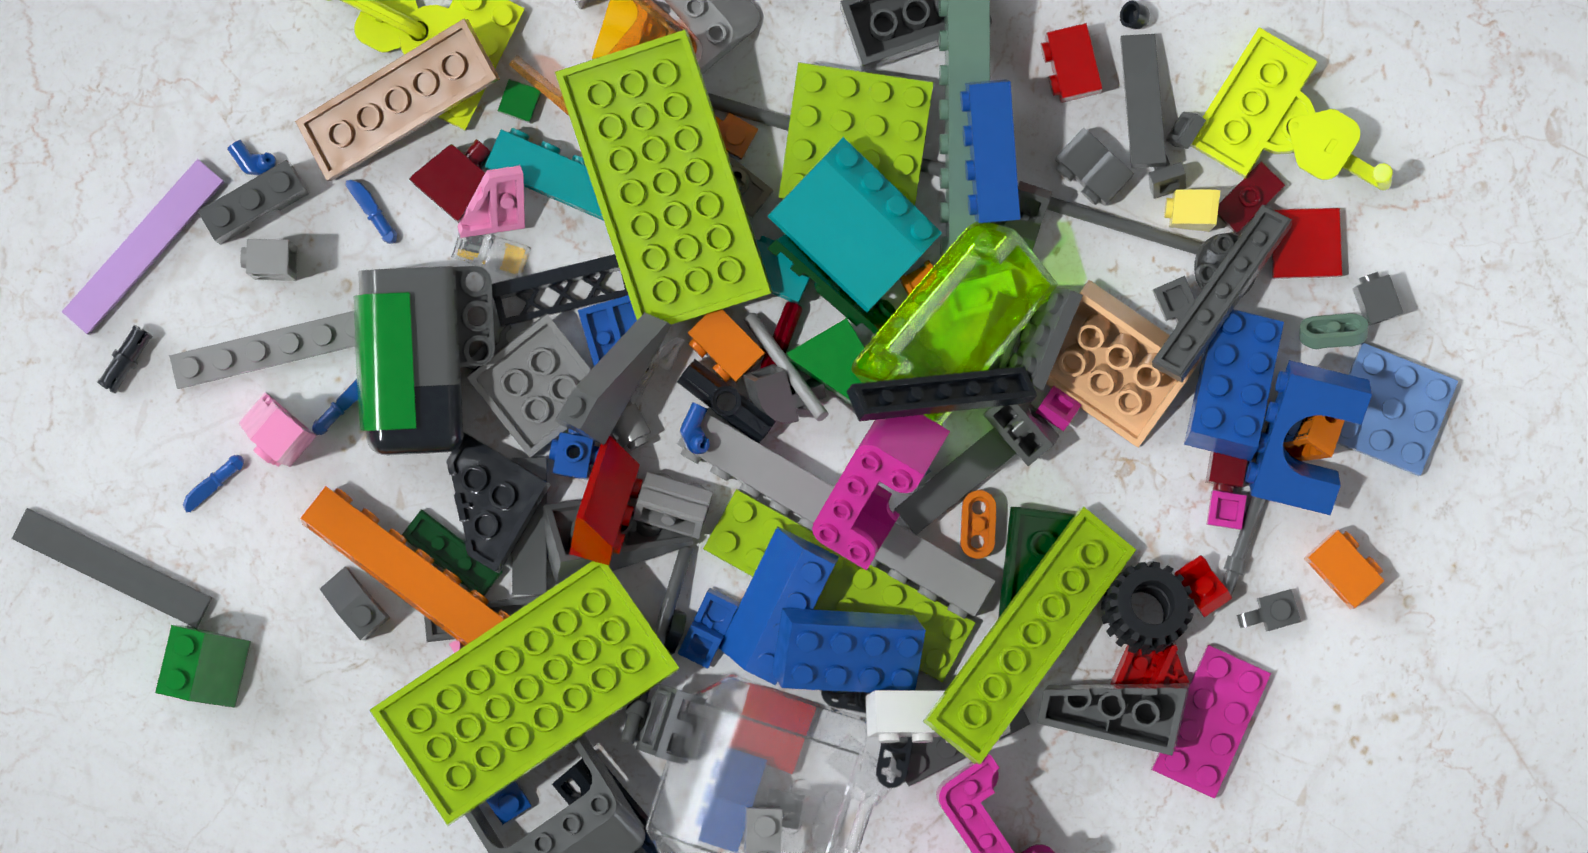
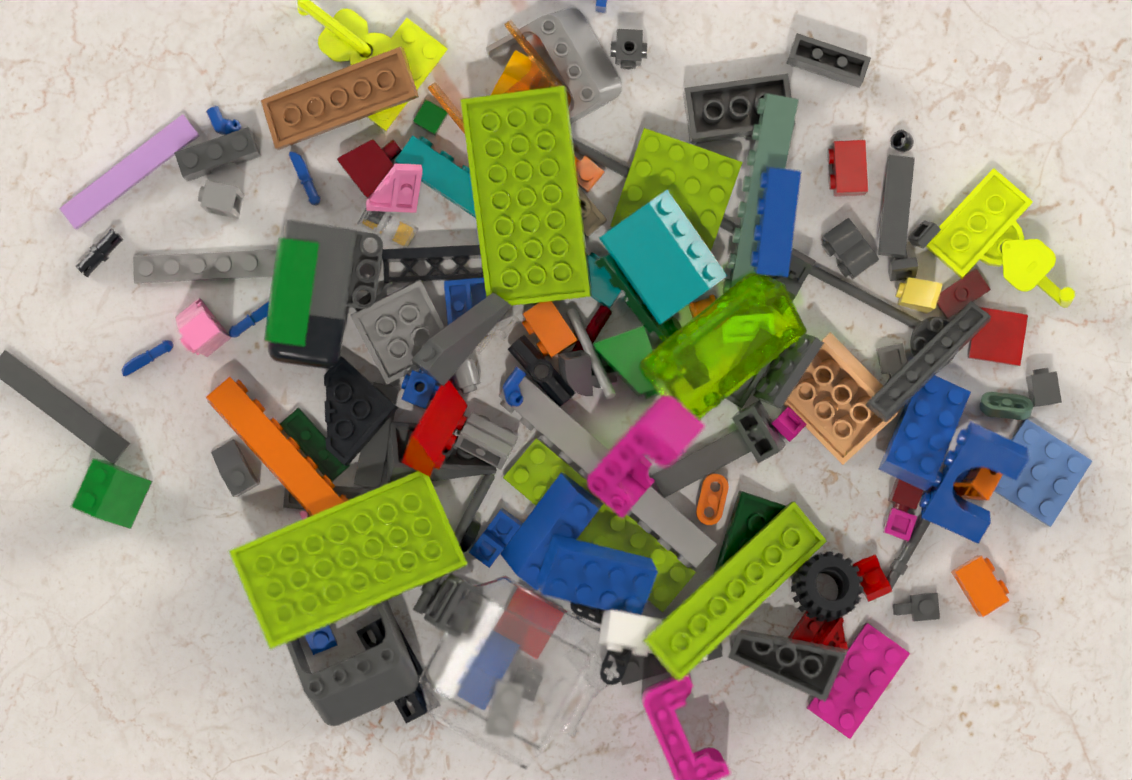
camera: 10 degrees right, 0 degrees up
(941, 393) = (703, 396): black plate -> none

